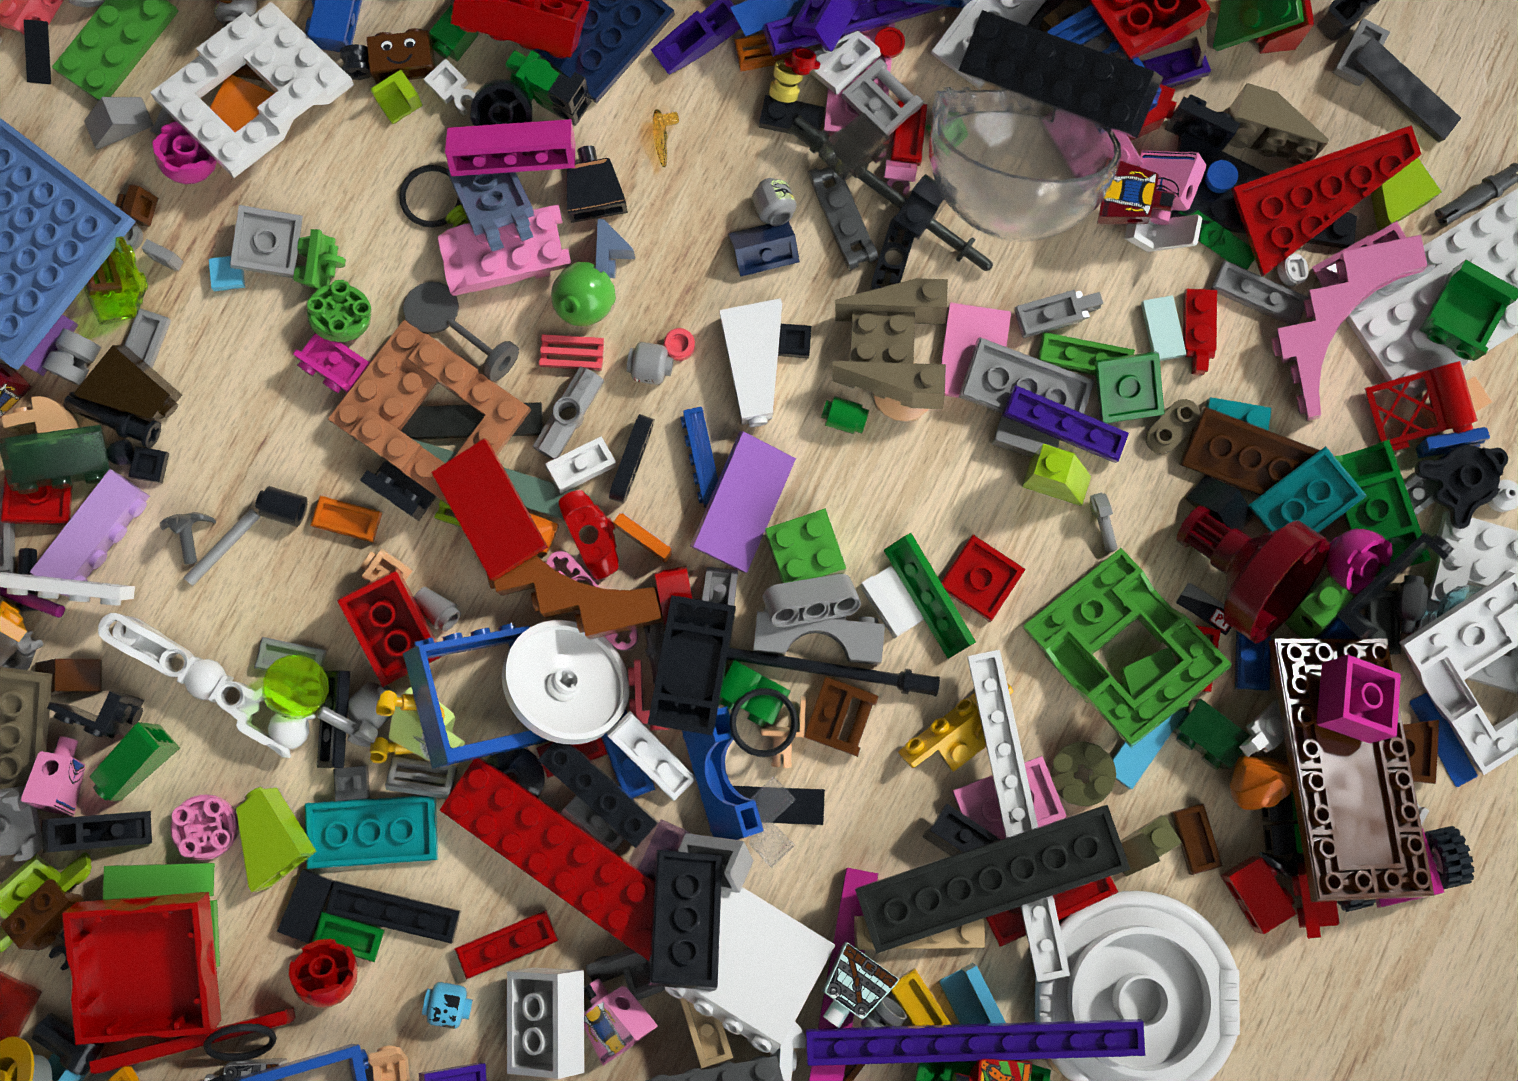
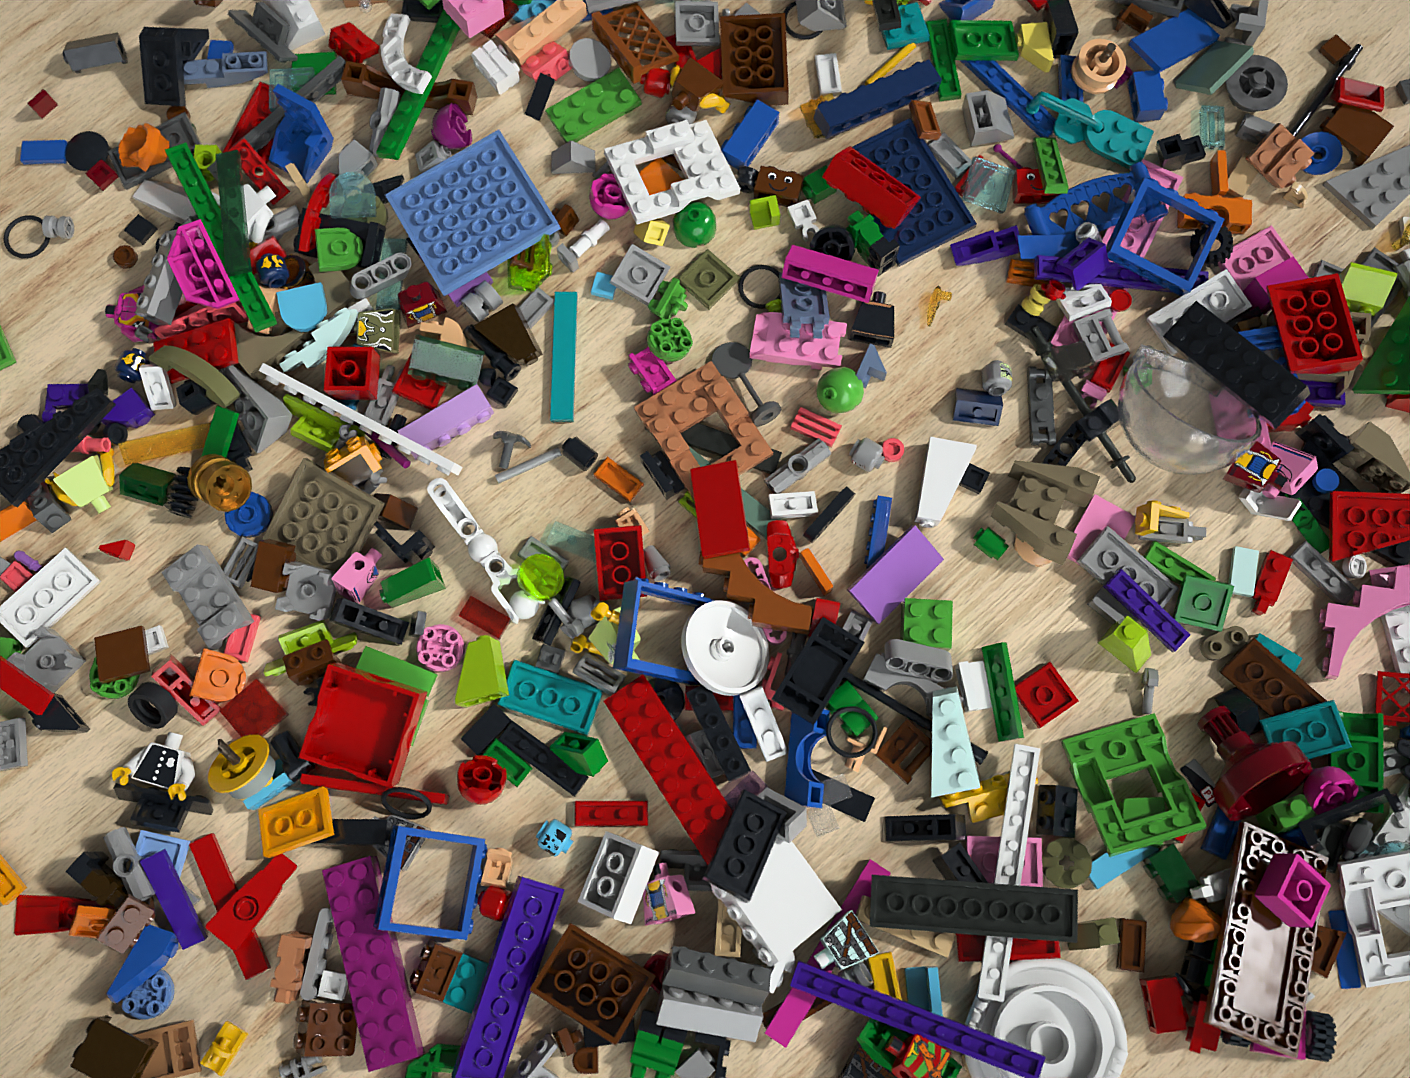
camera: 30 degrees right, 5 degrees down
(161, 809) = (417, 624): none -> black tile
(180, 218) = (589, 238): none -> white pin
(211, 387) = (564, 357): none -> teal tile
(245, 765) = (485, 617): none -> clear red tile
(260, 177) = (652, 231): none -> light yellow panel
(312, 147) = (695, 224): none -> green cylinder
(316, 622) = (572, 541): none -> clear light blue tile
(358, 212) = (708, 279): none -> olive tile
(436, 887) = (580, 753): none -> green slope
(893, 693) = (952, 753): none -> light aqua wedge
(899, 801) = (925, 827): none -> black slope
(1023, 304) = (1148, 516): none -> yellow bracket
(1049, 715) = (1057, 811): none -> black bracket

